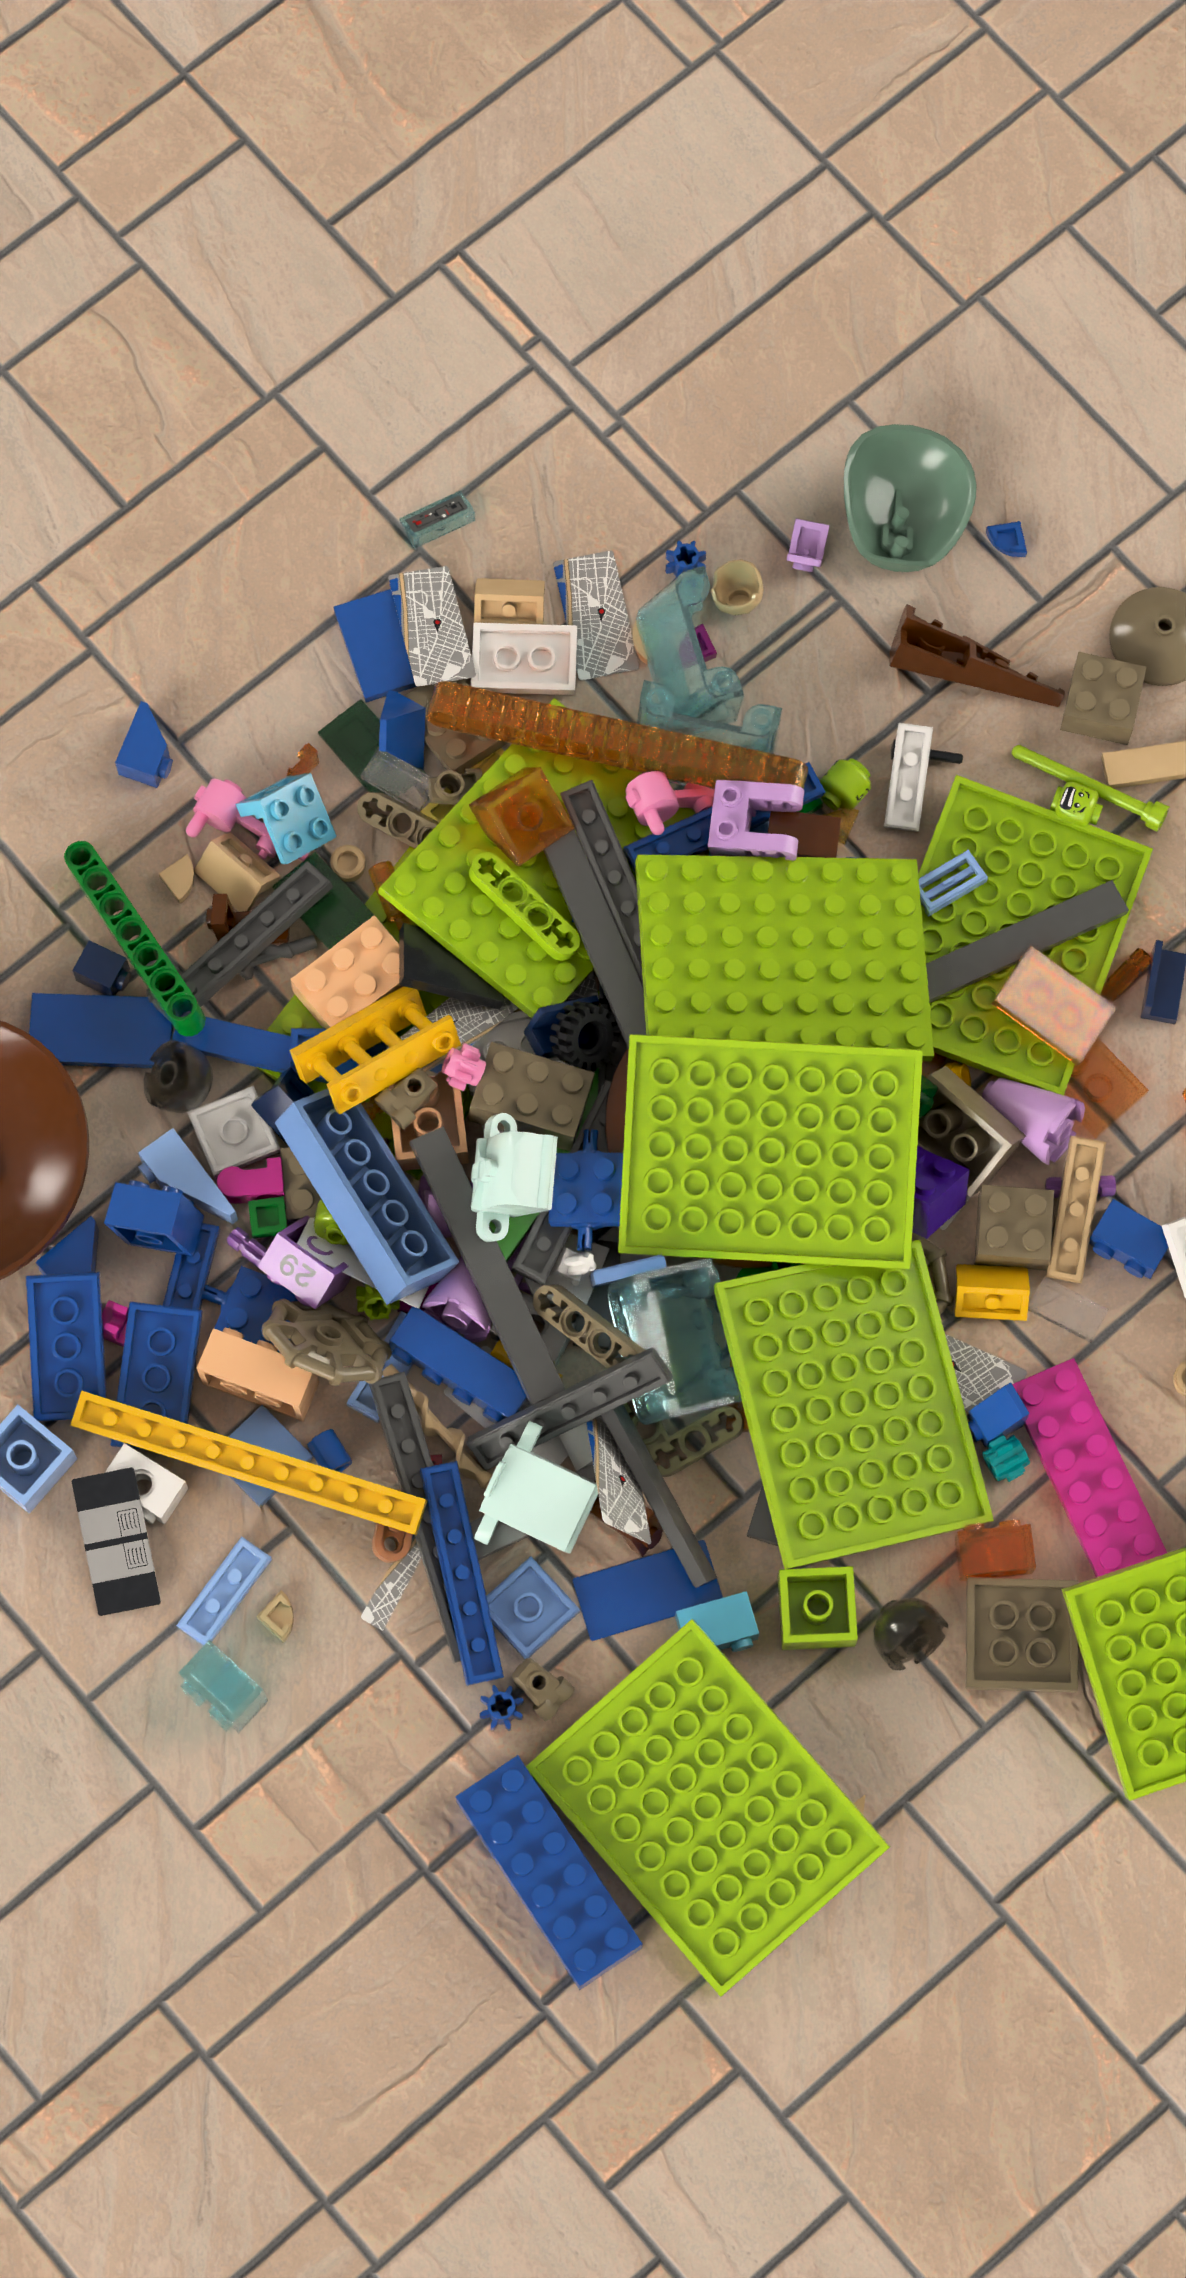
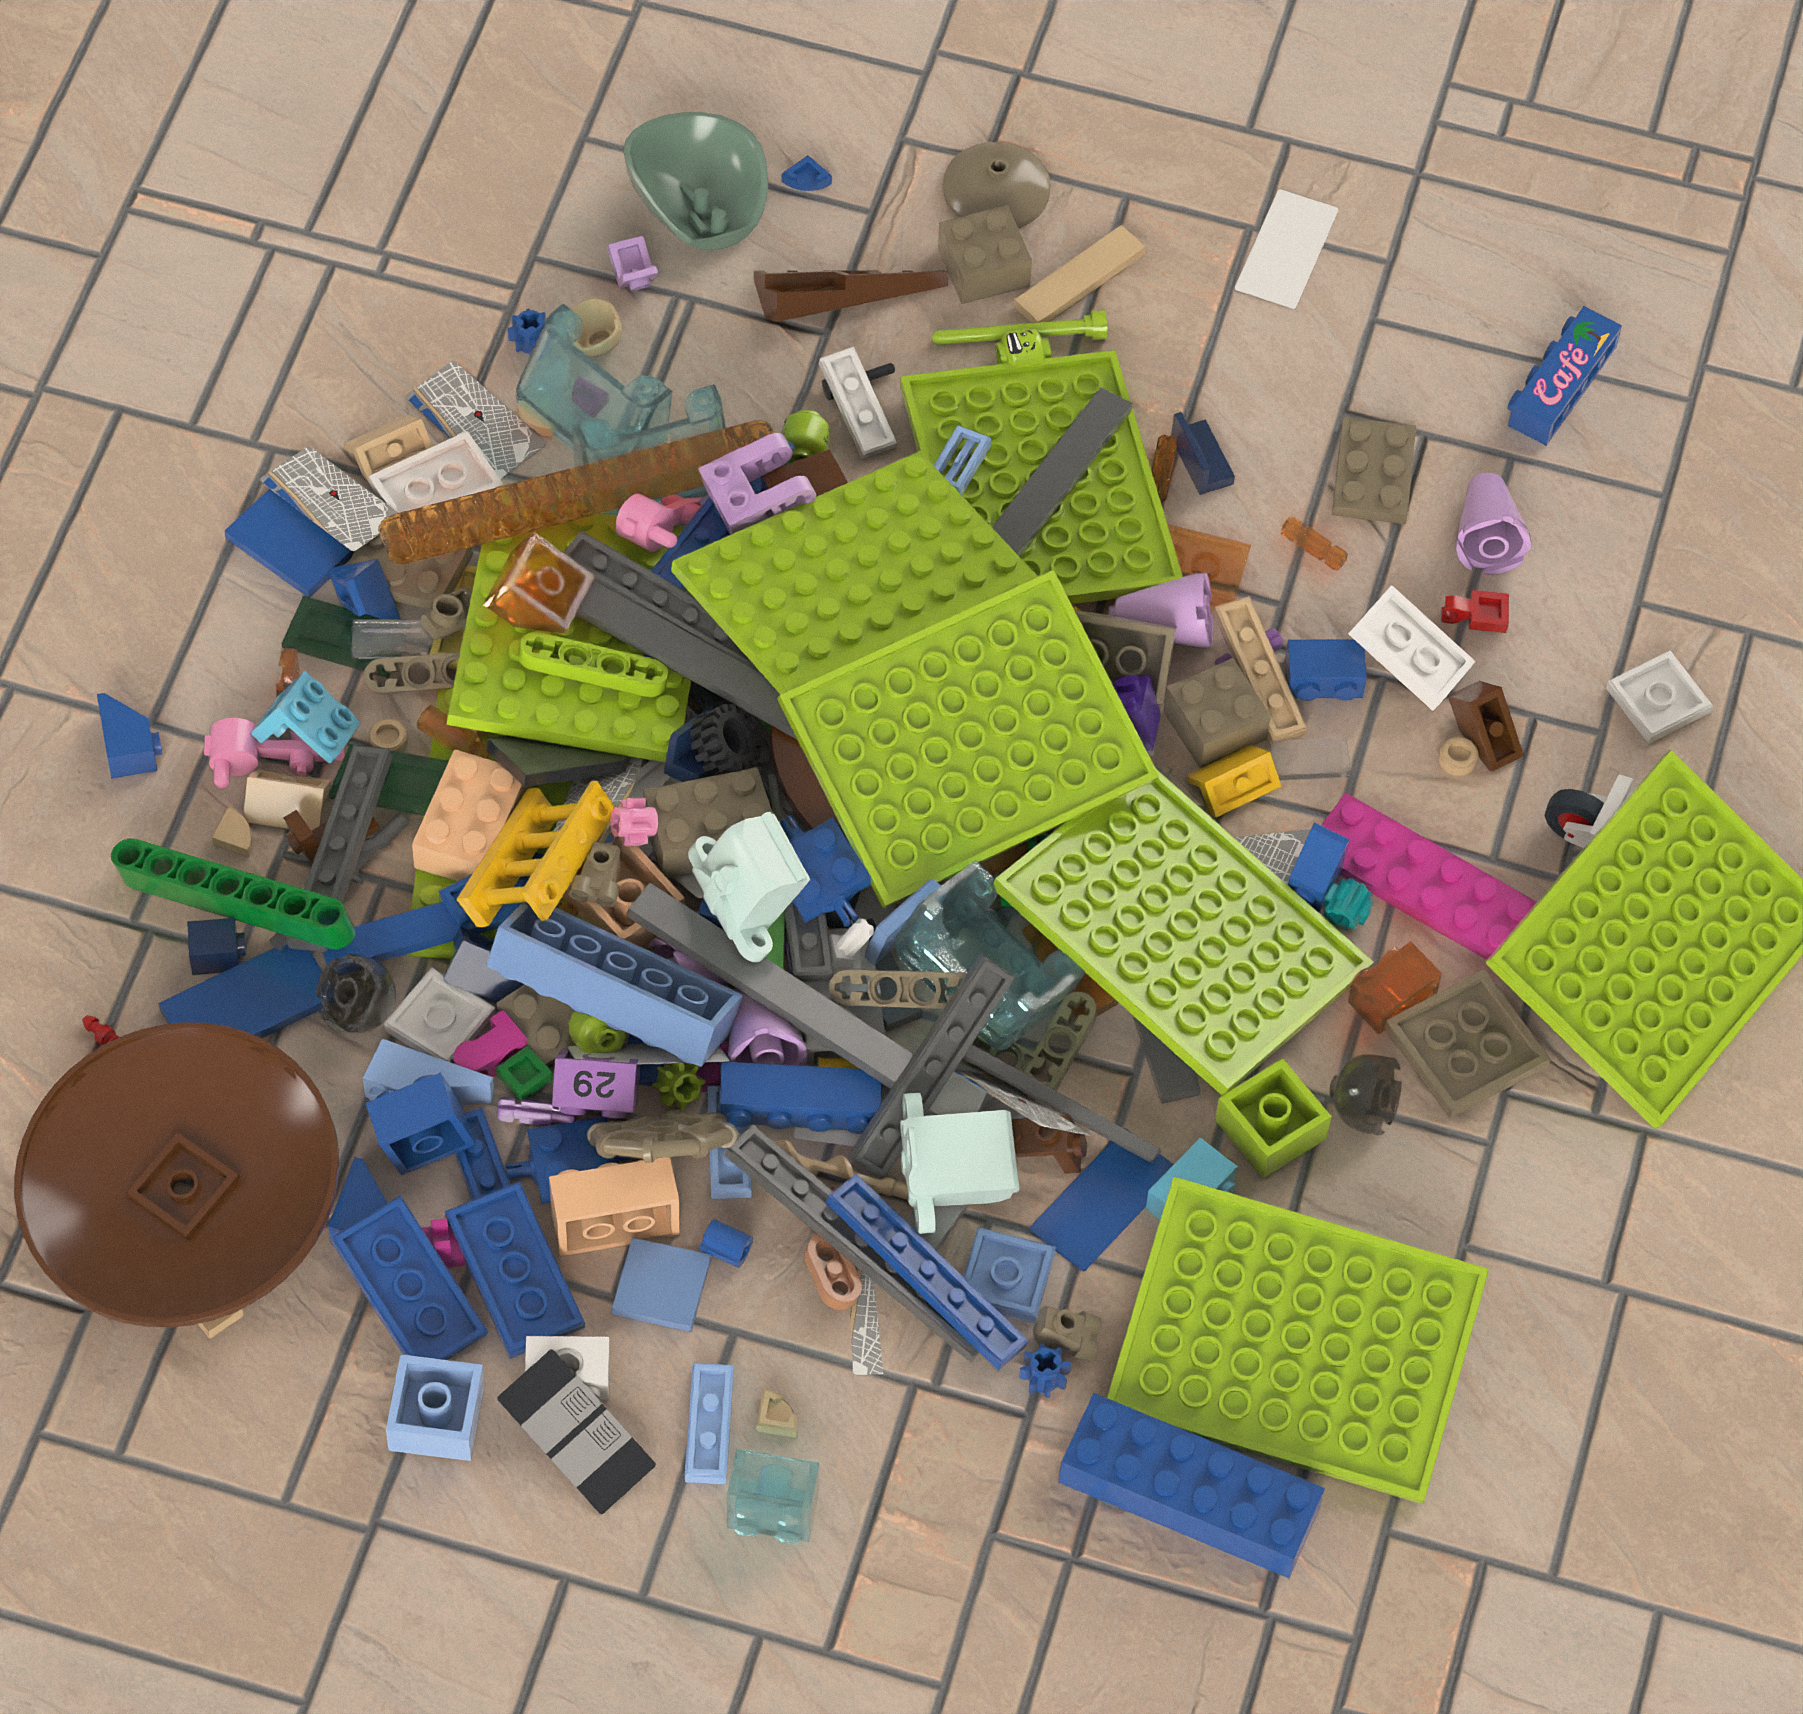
camera: 35 degrees left, 15 degrees down
(249, 1463) = (658, 1285): yellow plate -> none
(437, 519) = (272, 412): clear light blue slope -> none
(1054, 1005) = (1124, 509): clear orange tile -> none

